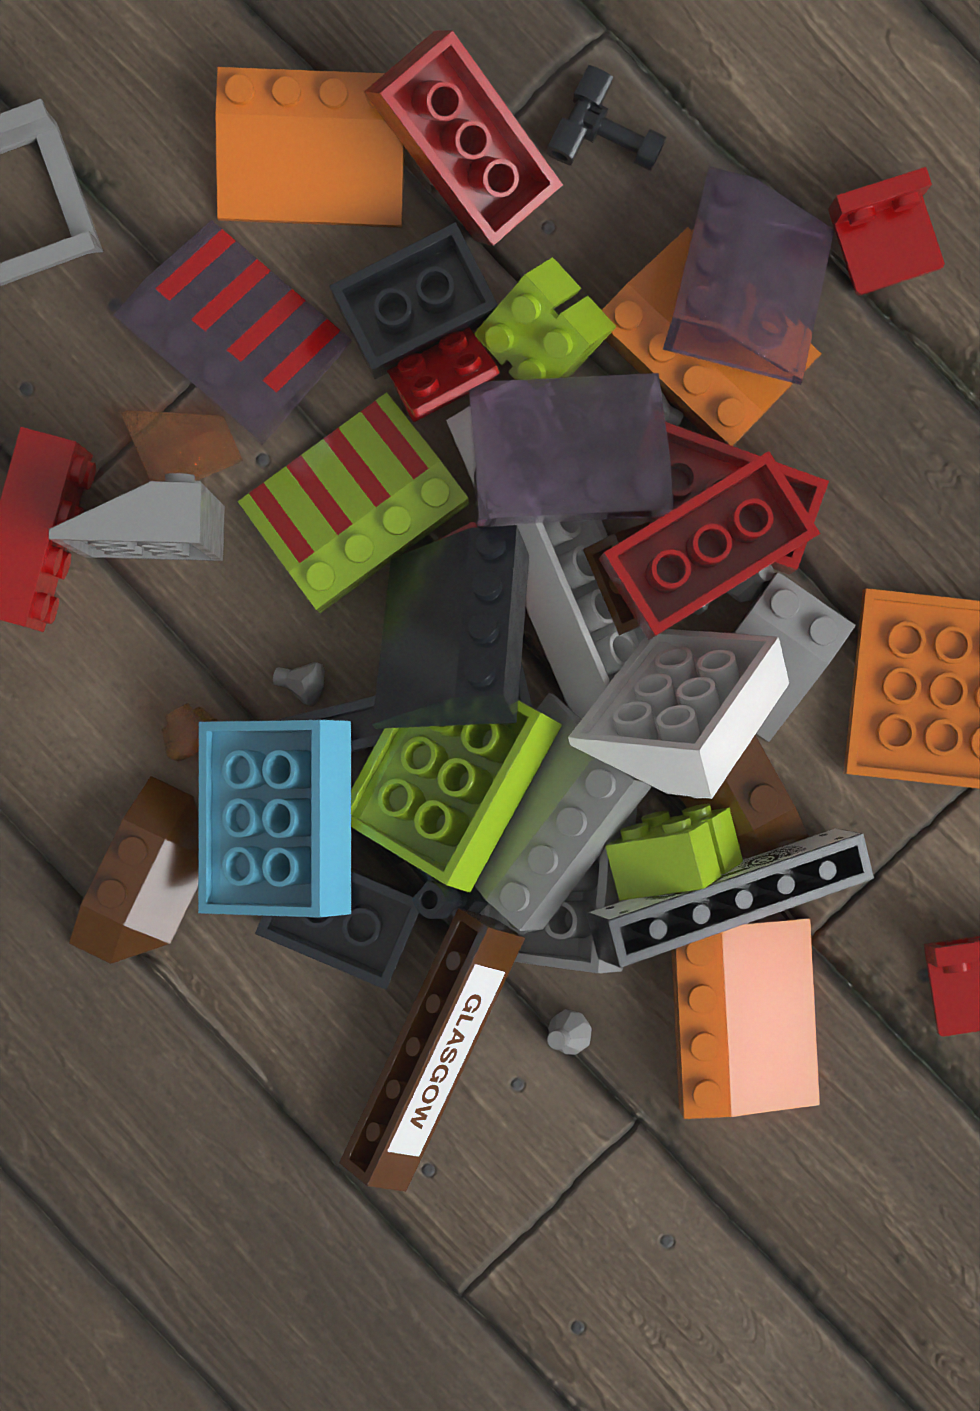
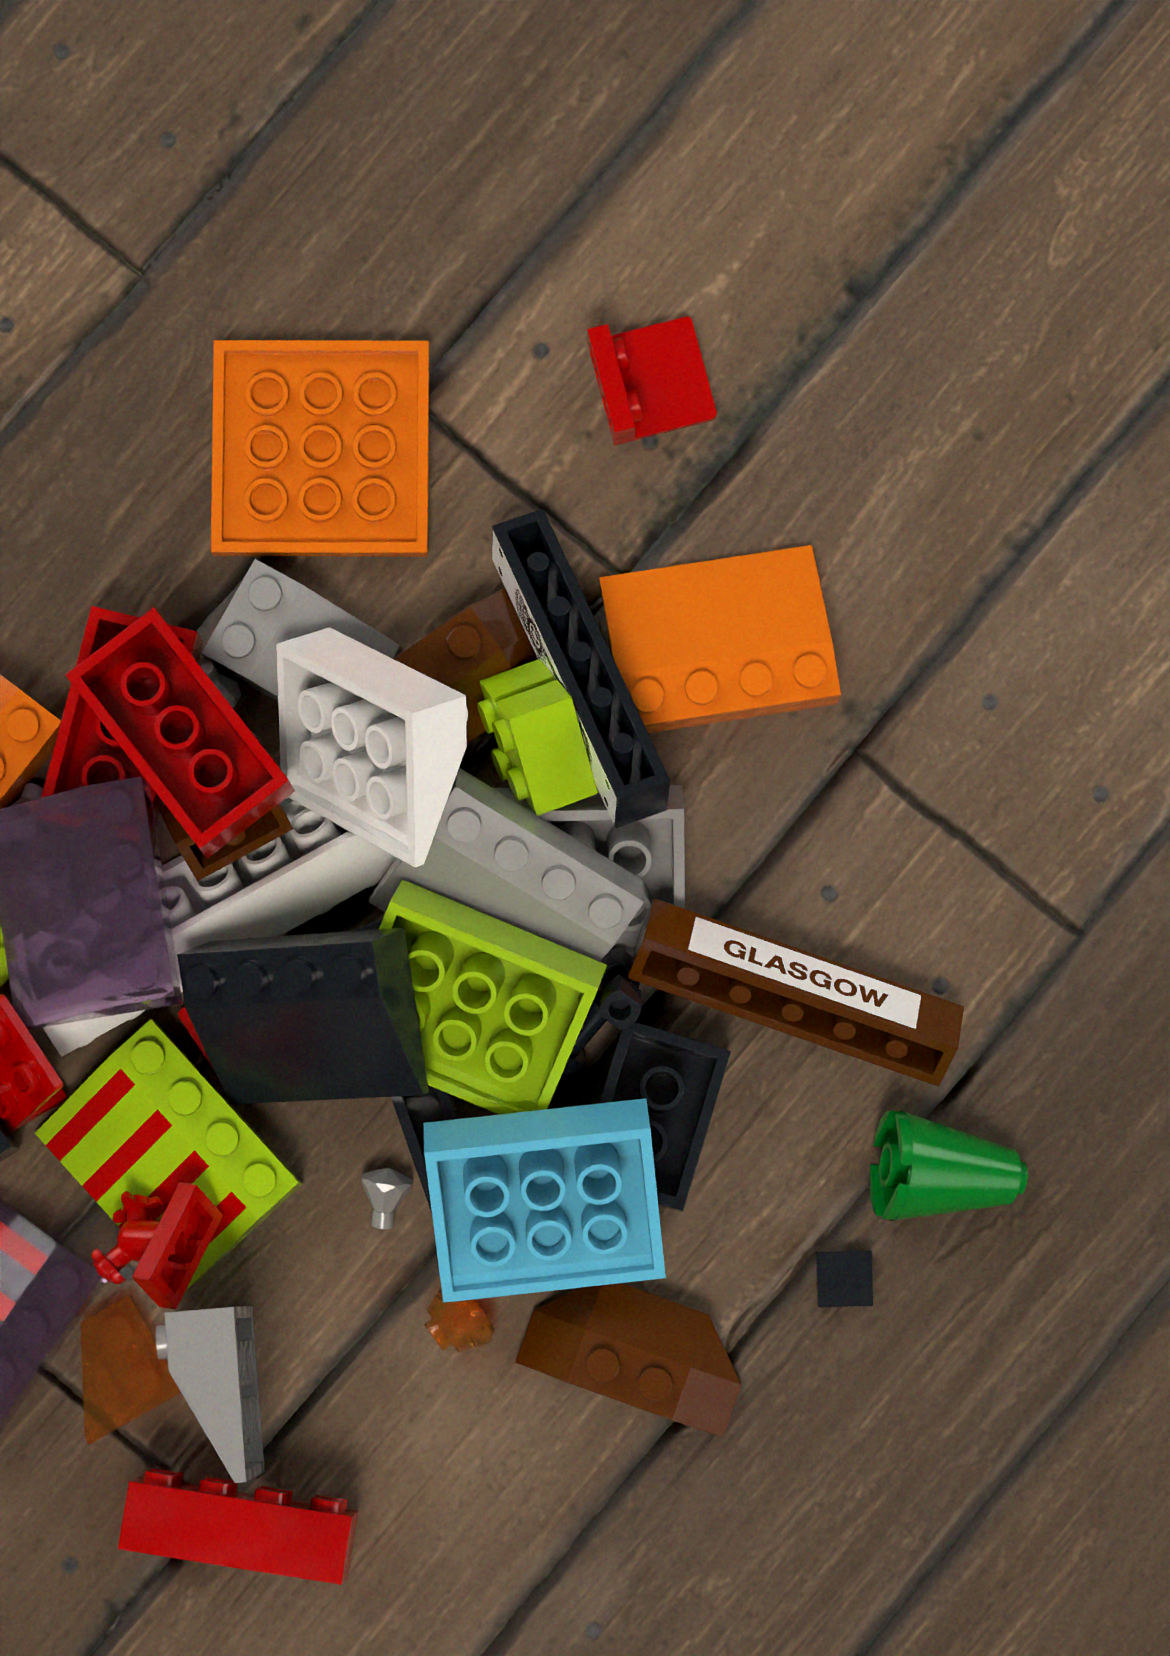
camera: 90 degrees left, 5 degrees down
(189, 1060) = (844, 1278): none -> black tile
(269, 1152) = (939, 1170): none -> green cone
(270, 492) = (164, 1248): none -> red piece
(569, 1032) = (760, 838): light grey rock -> none

